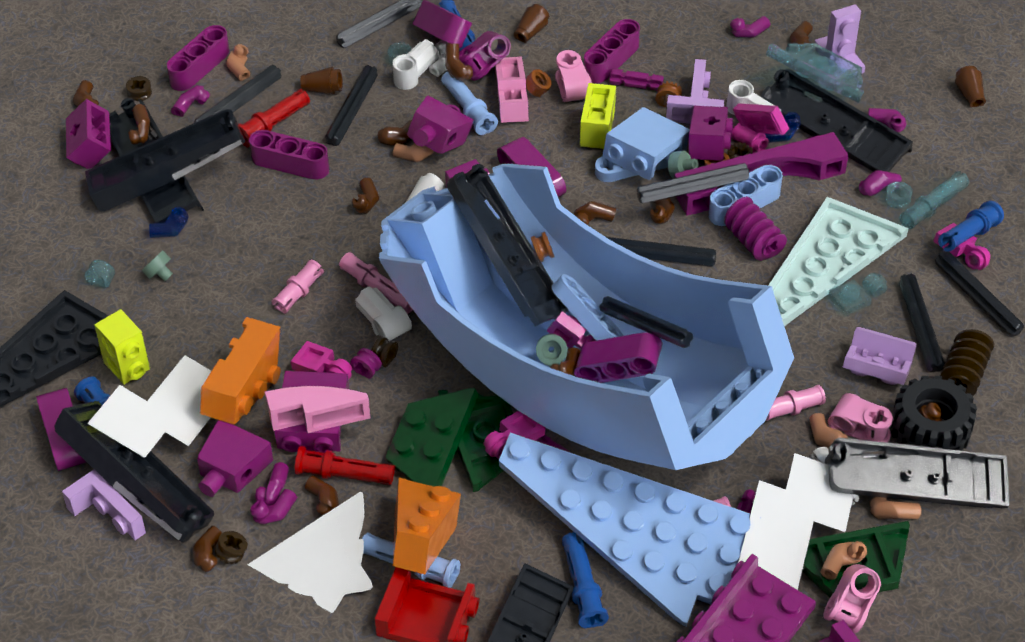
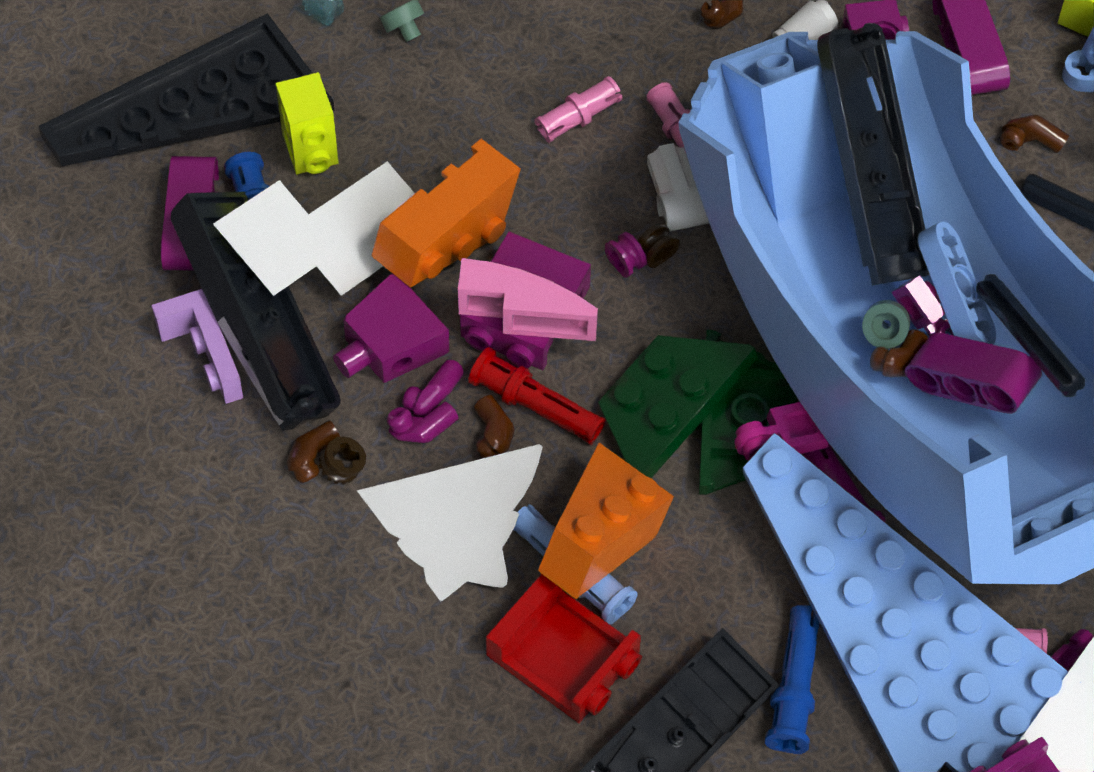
camera: 20 degrees right, 10 degrees up
(319, 359) = (560, 226): dark pink plate -> none
(542, 246) = (929, 170): dark orange bush -> none

